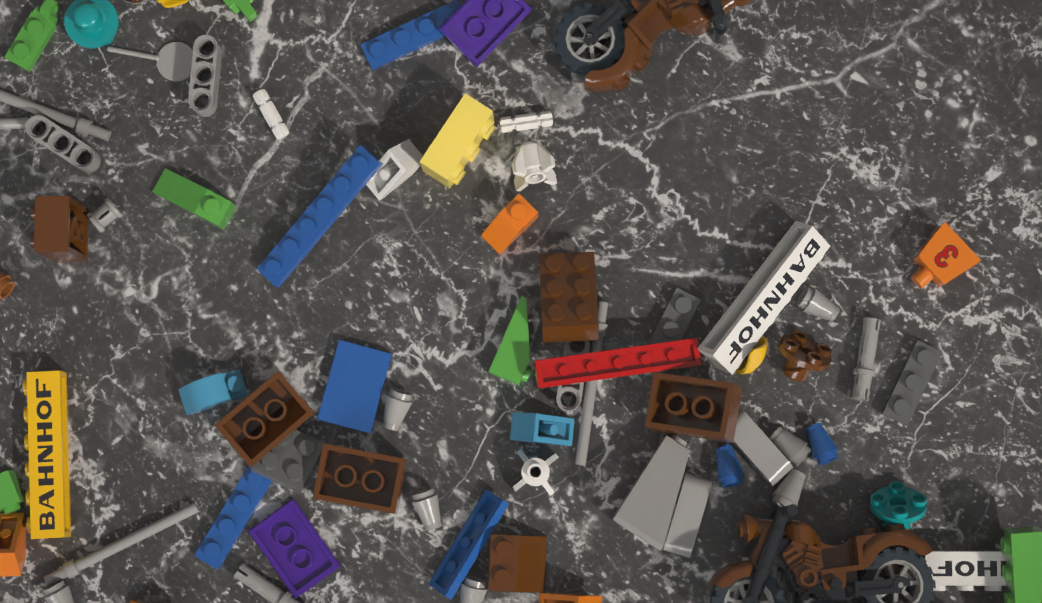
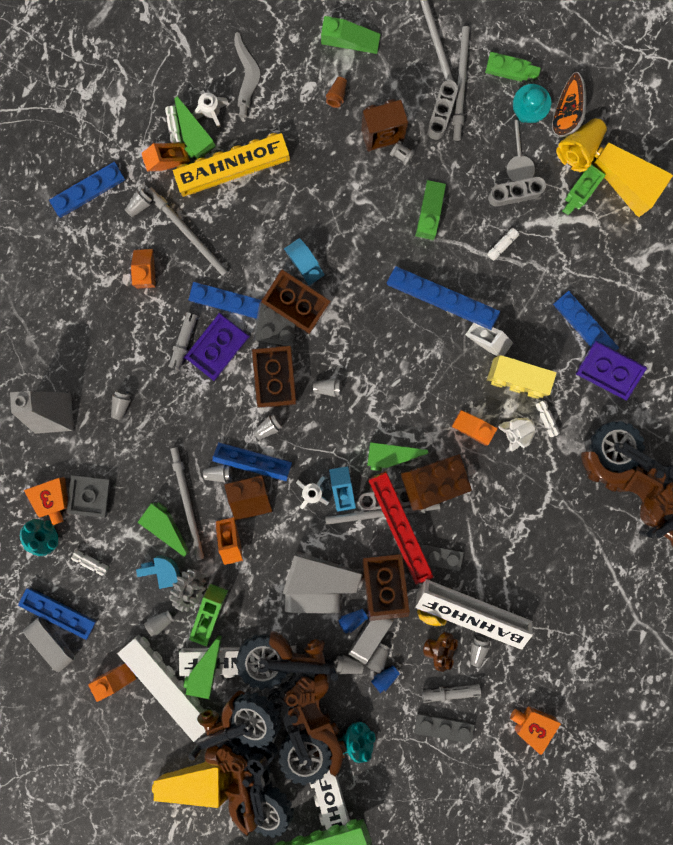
camera: 70 degrees right, 5 degrees up
(354, 386) = (335, 355): blue tile -> none

